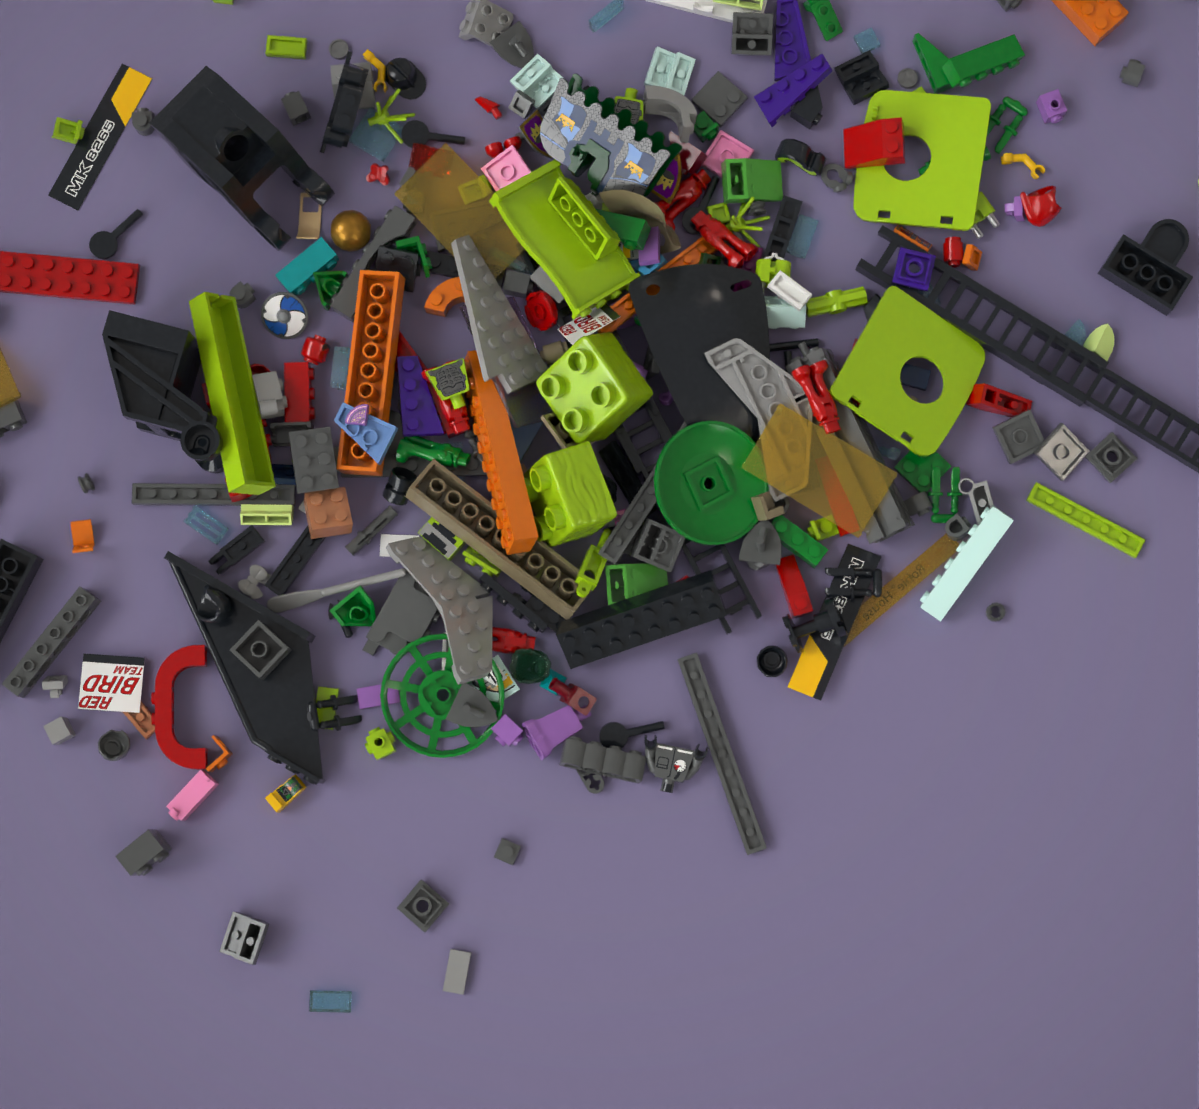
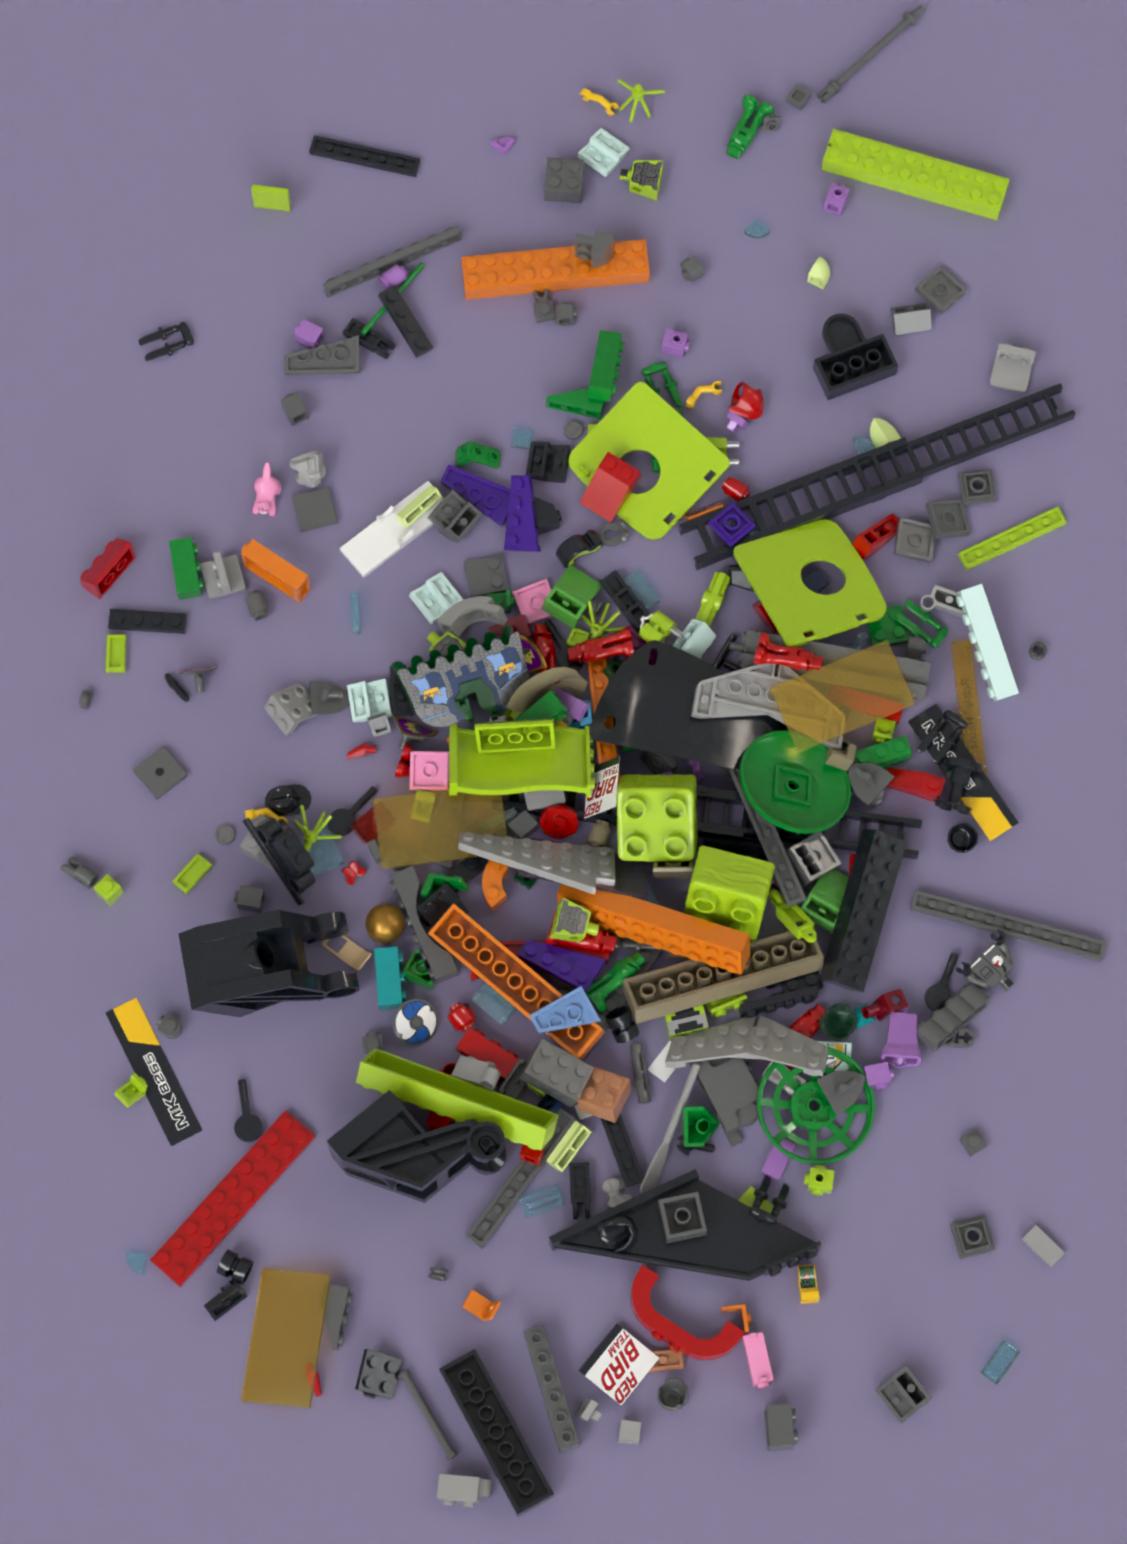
camera: 60 degrees left, 10 degrees down
(358, 415) = (550, 1009): medium lavender tile -> none
(789, 290) = (683, 624): white tile -> none
(957, 527) = (954, 631): dark grey plate -> none
(972, 257) = (750, 479): orange tile -> none

